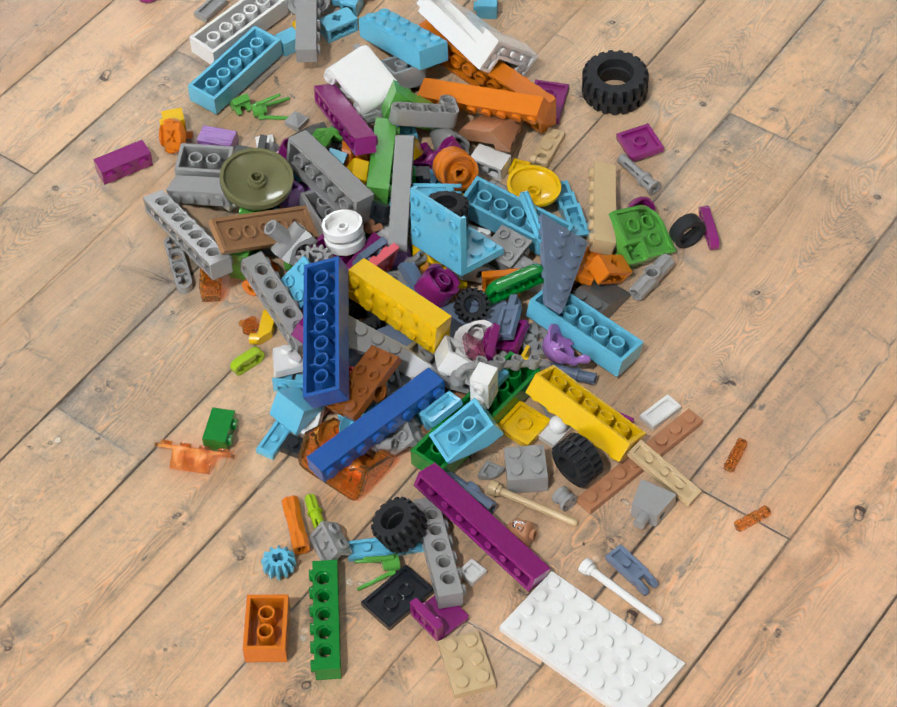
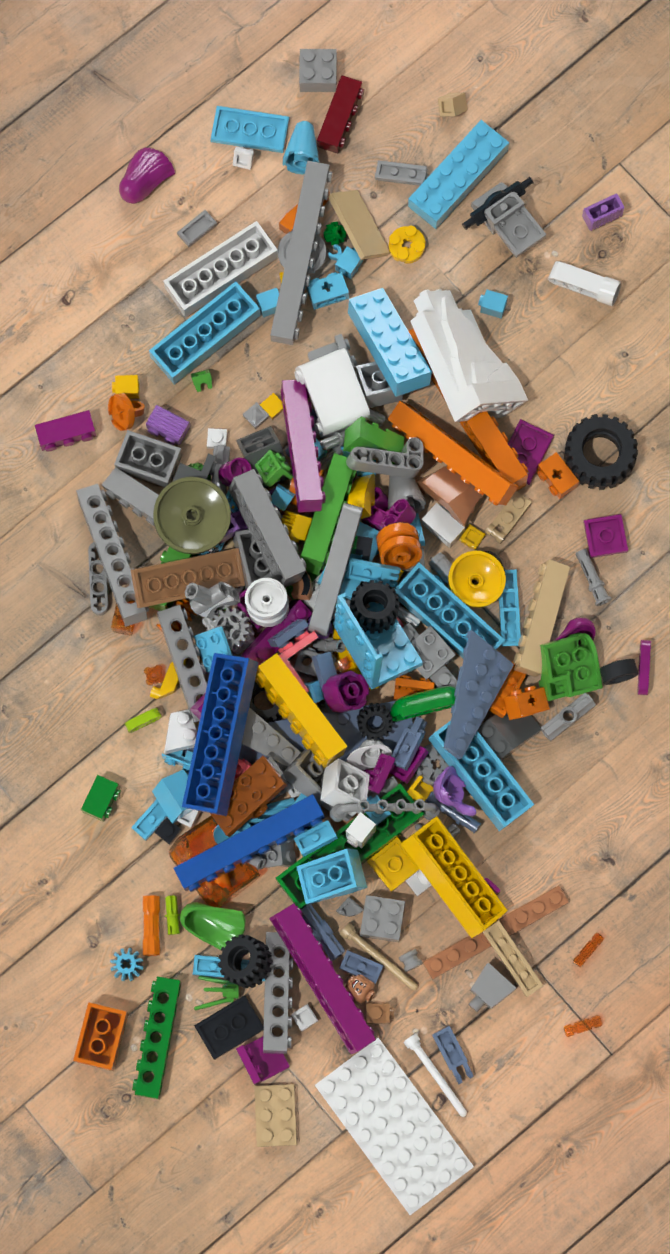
camera: 15 degrees right, 25 degrees up
(192, 459) = (68, 822): clear orange bracket -> none
(259, 108) = (220, 391): bright green plant -> none
(311, 111) = (272, 406): none -> yellow tile
(329, 541) = (179, 955): light grey bracket -> none
(355, 505) = (212, 924): none -> bright green hair
(379, 211) = (309, 584): black plate -> none
(473, 346) = (363, 776): clear pink tile -> none
(508, 512) = (358, 965): none -> sand blue plate
(531, 212) = (463, 620): medium azure axle -> none
(549, 550) = (379, 1013): none -> medium nougat bracket
(577, 459) = (432, 927): black tyre -> none
(582, 108) = (555, 465): none -> orange brick
(660, 412) = (530, 881): white tile -> none

